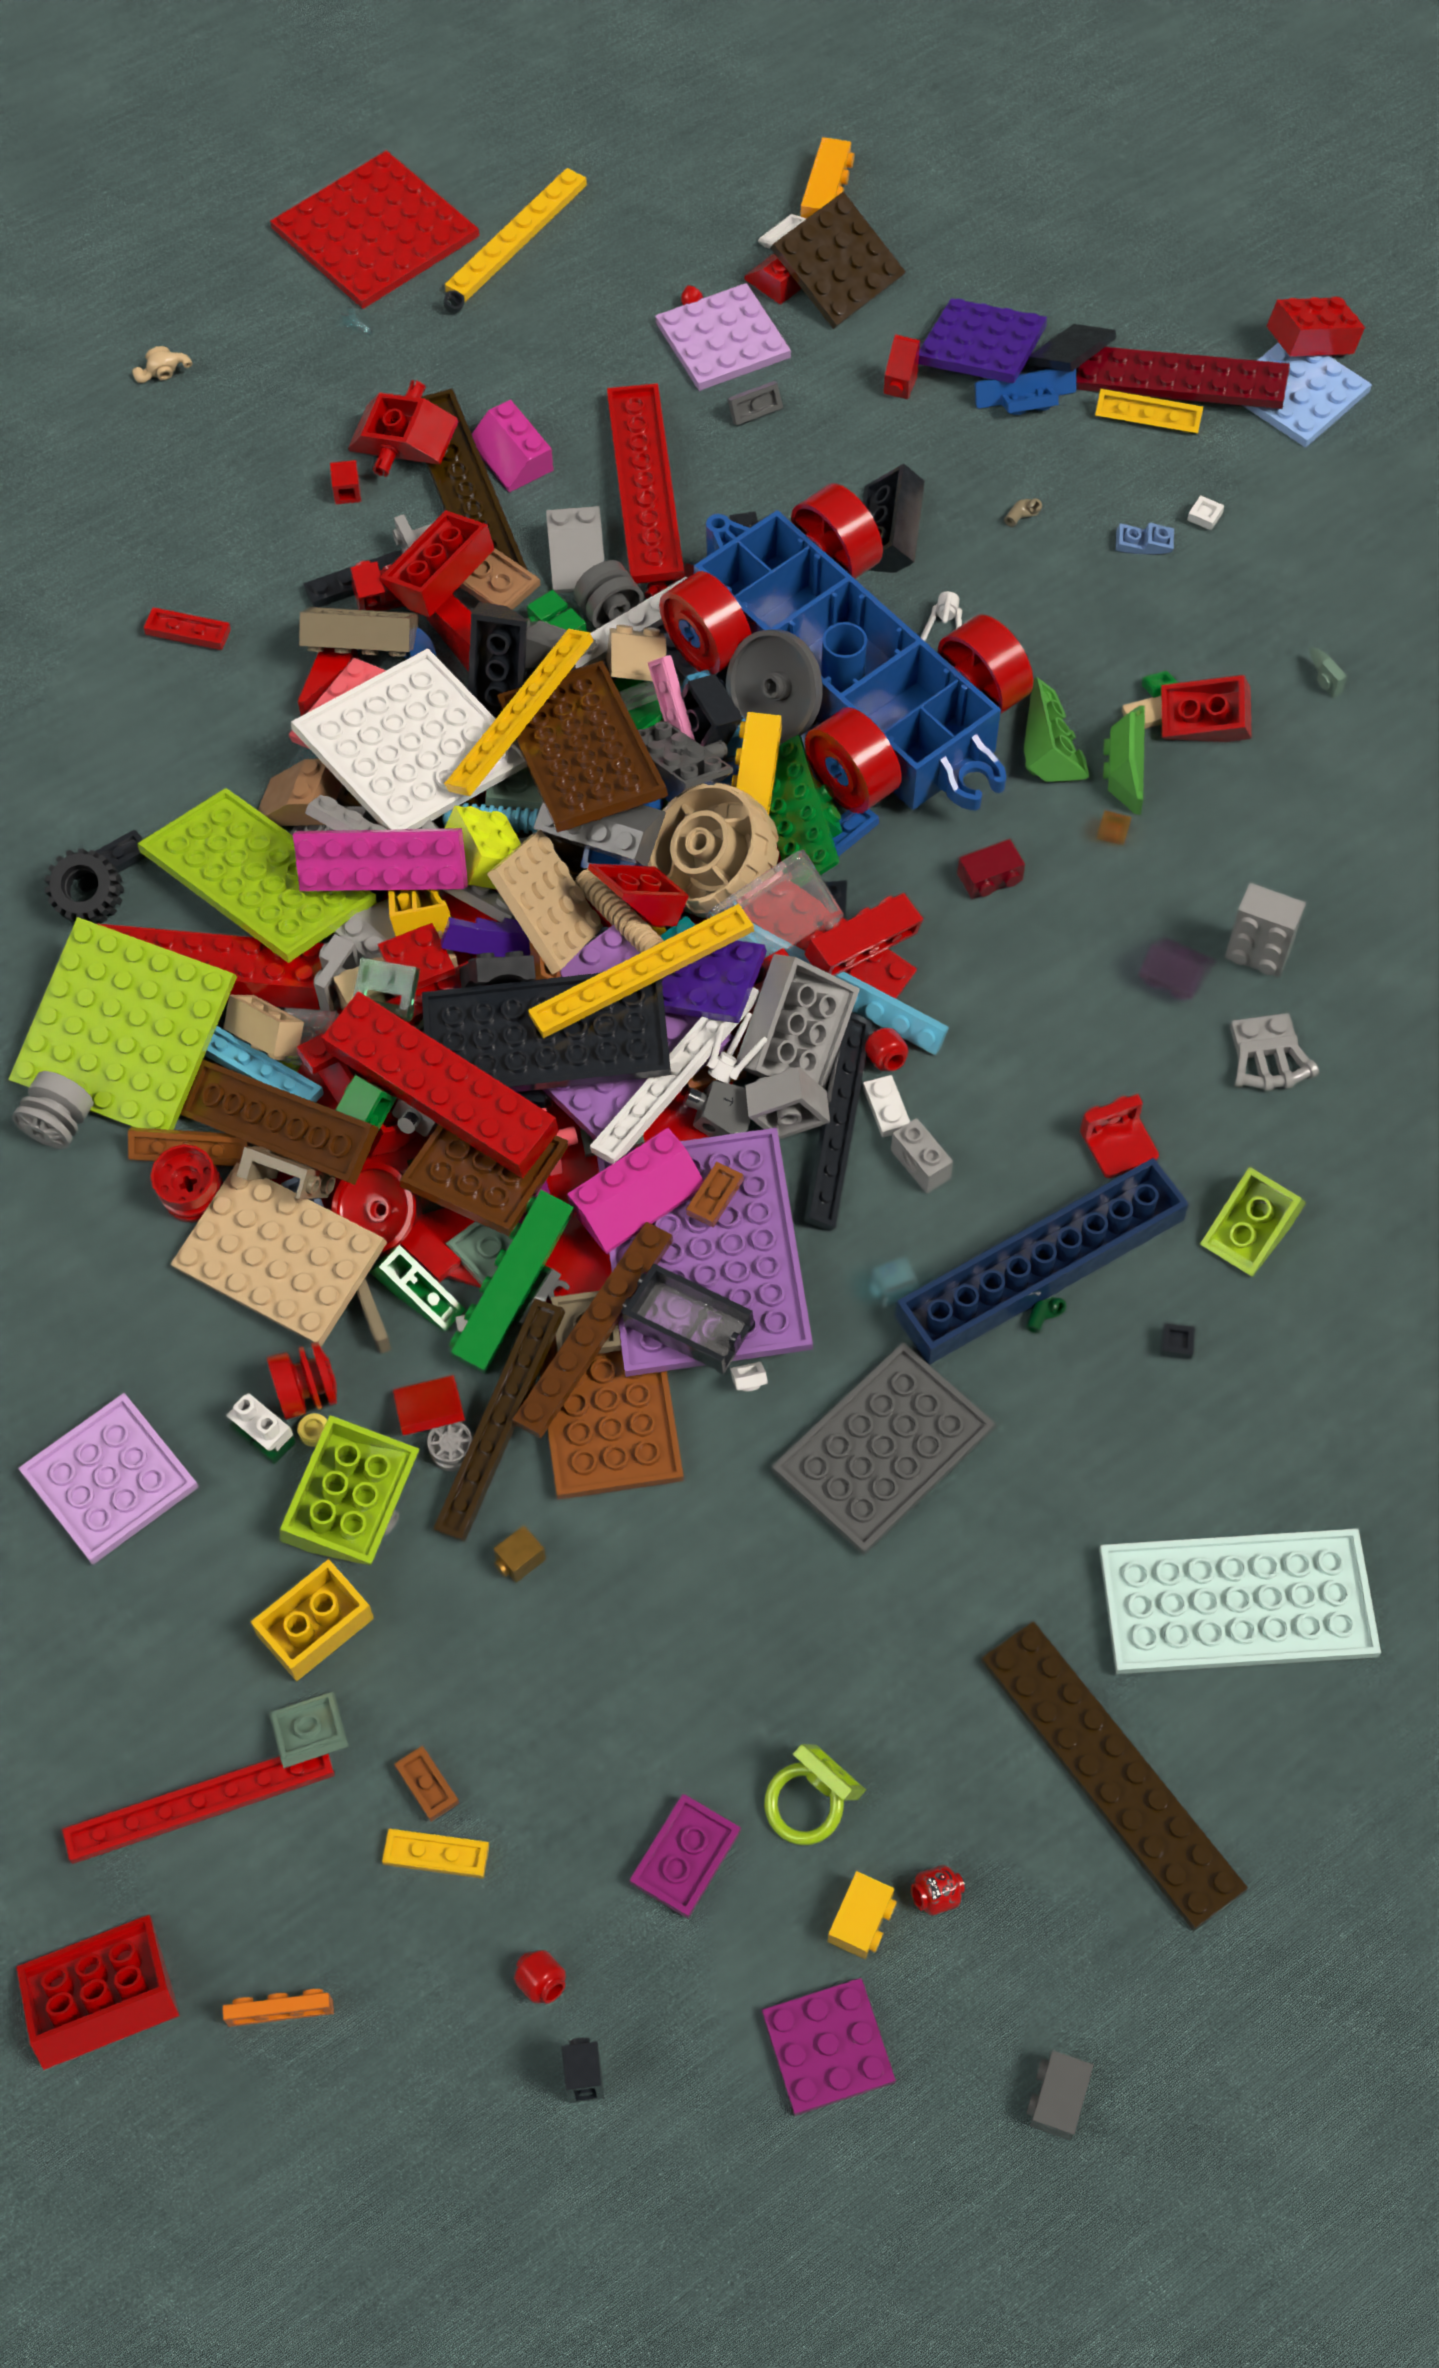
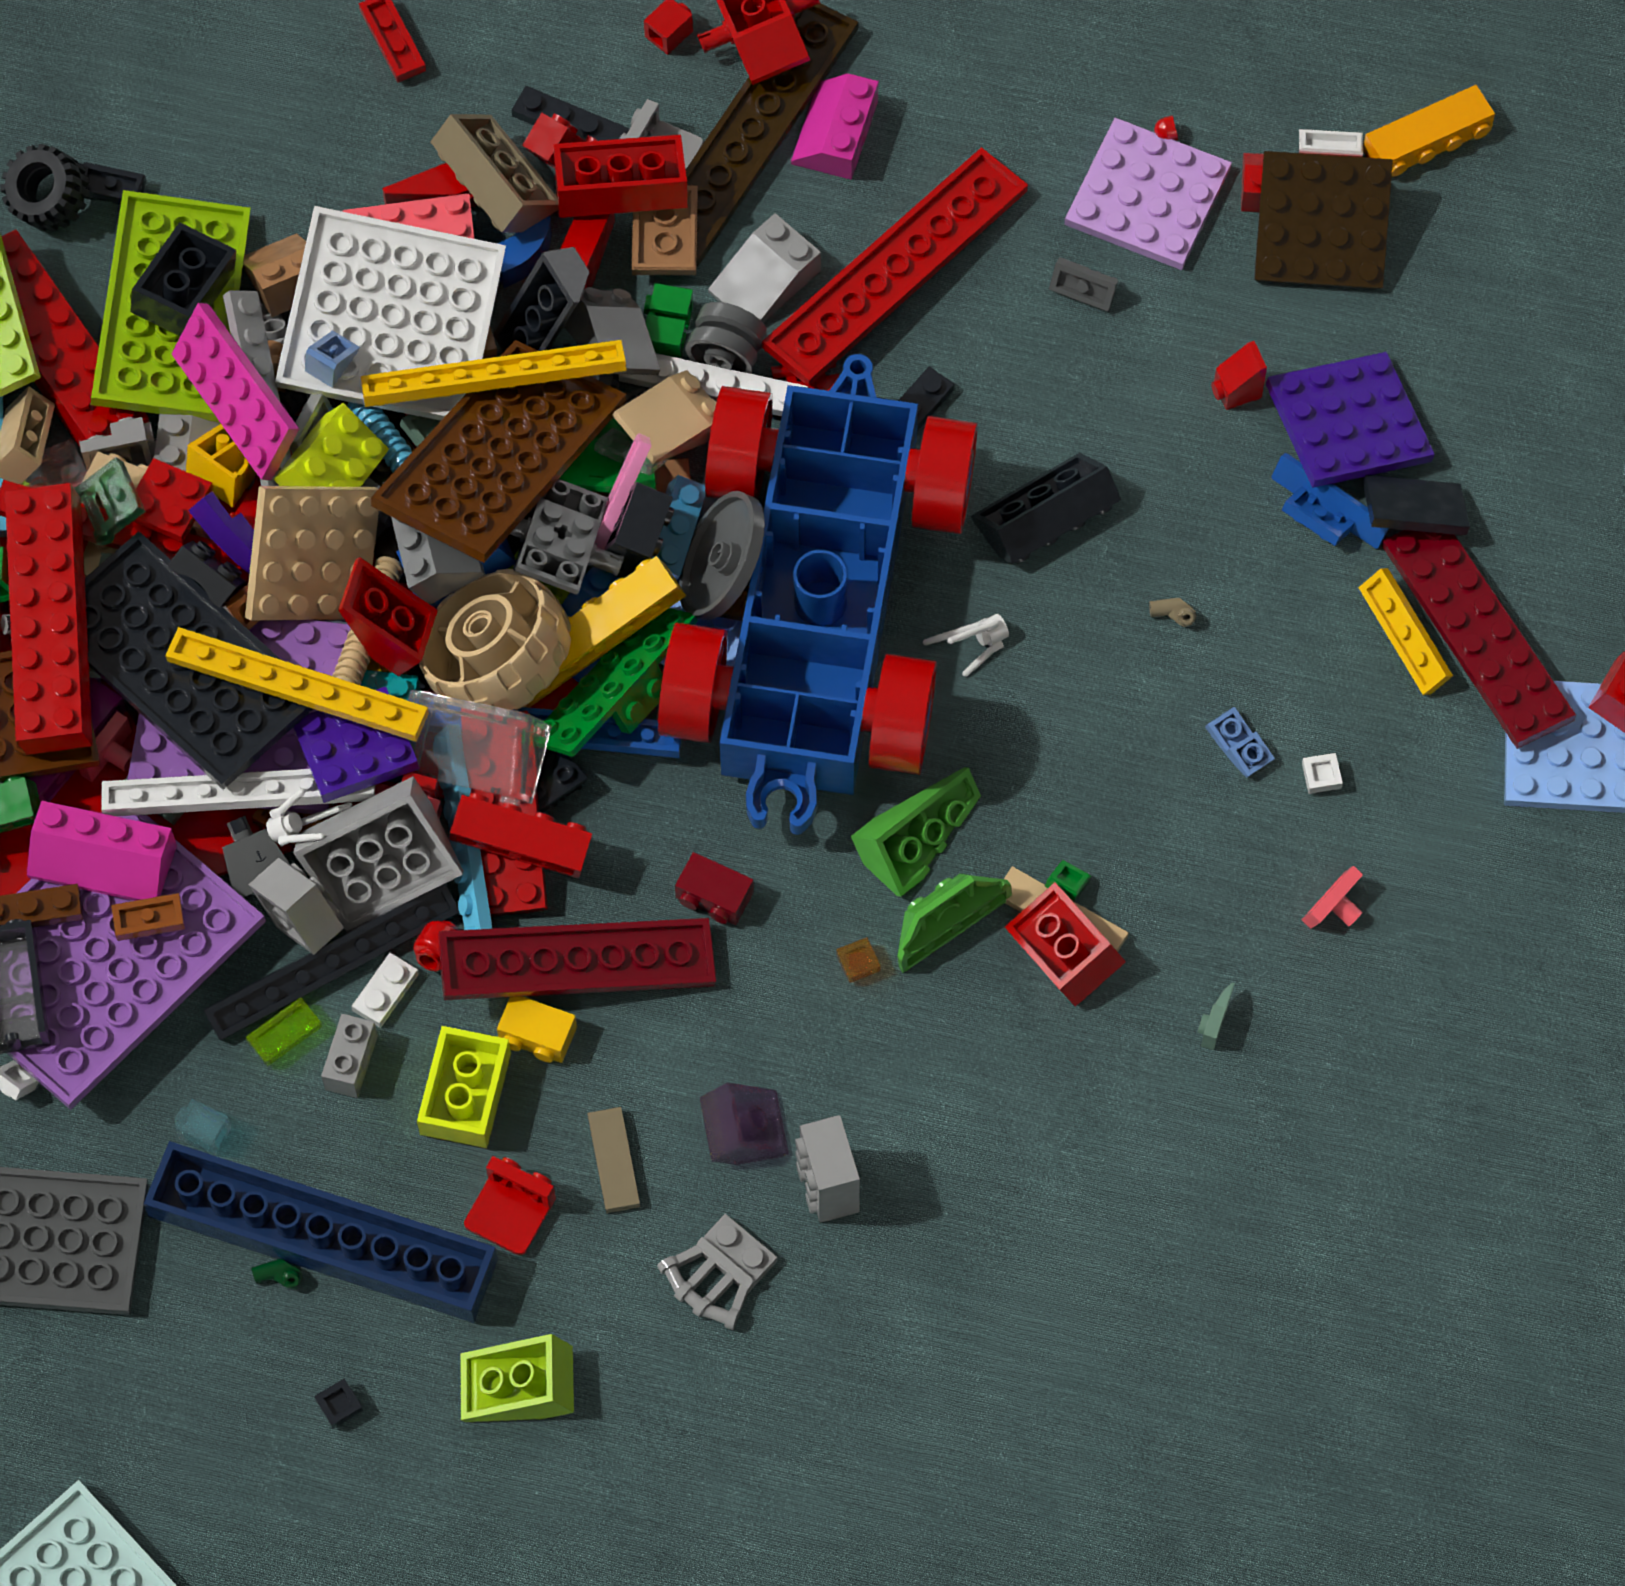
camera: 50 degrees right, 5 degrees up
(254, 844) = (181, 275): none -> black brick
(415, 791) = (330, 357): none -> medium blue slope
(864, 1185) = (284, 1032): none -> clear neon green plate
(975, 974) = (576, 958): none -> dark red plate
(1000, 1035) = (537, 1028): none -> yellow brick
(1009, 1102) = (464, 1087): none -> neon yellow brick
(1134, 1058) = (613, 1160): none -> dark tan tile
(1298, 563) = (1336, 901): none -> coral tile

